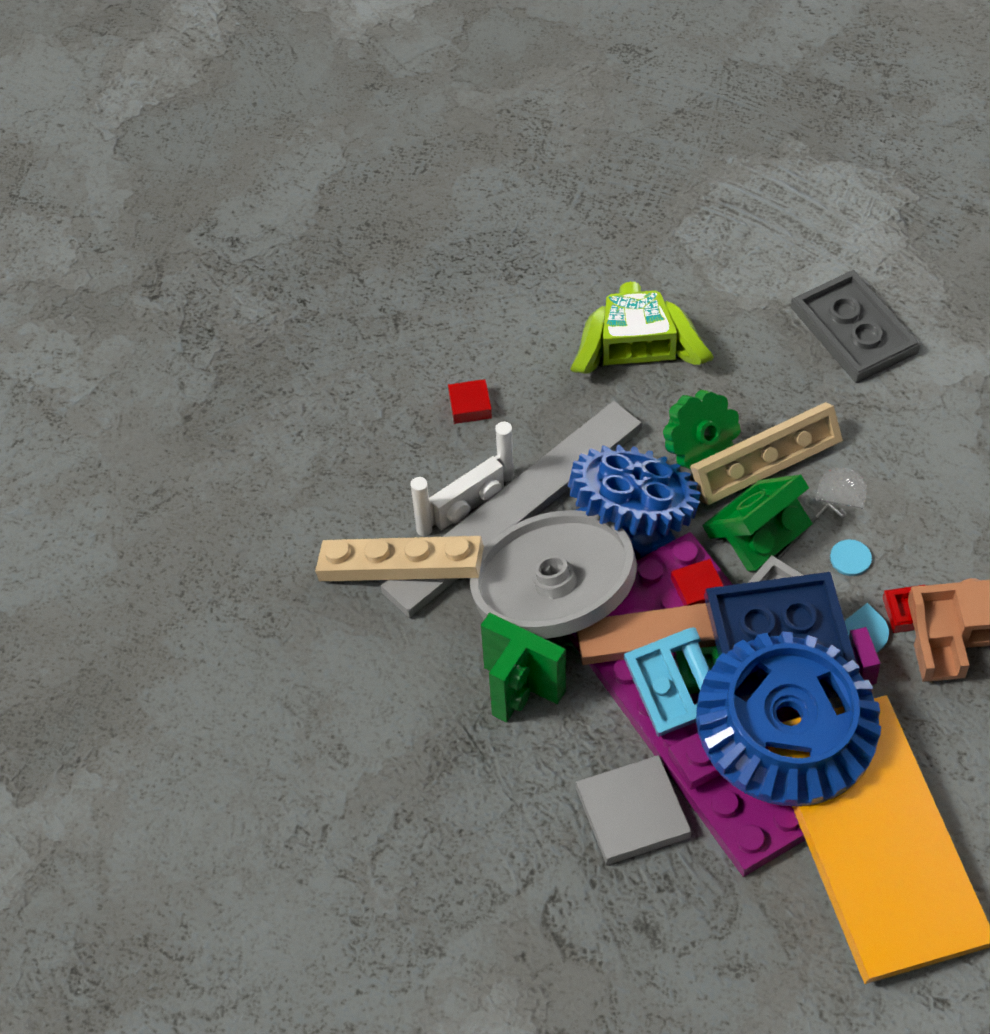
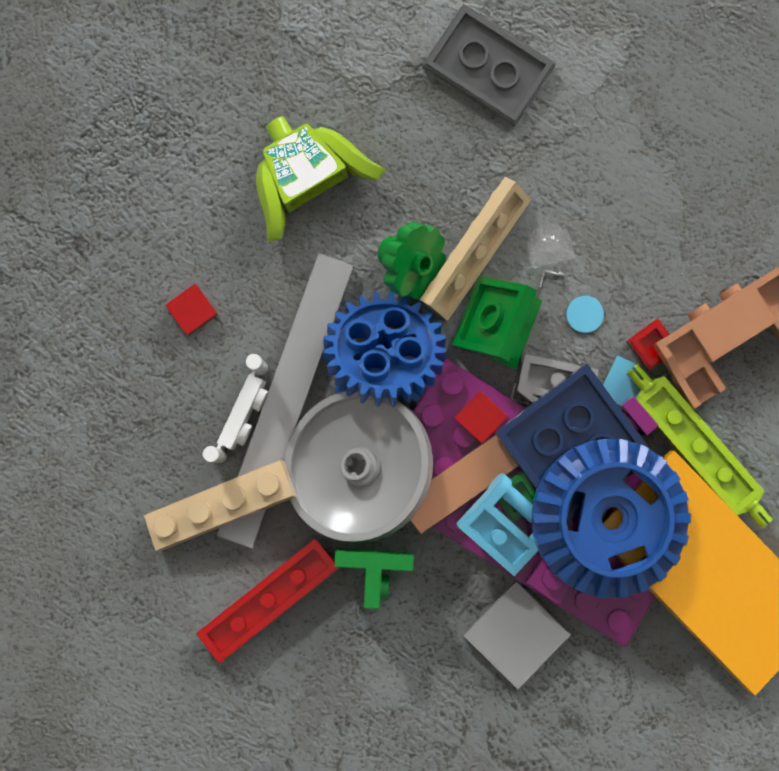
camera: 25 degrees left, 30 degrees up
(396, 662) = (267, 600): none -> red plate
(919, 715) = (700, 446): none -> lime plate

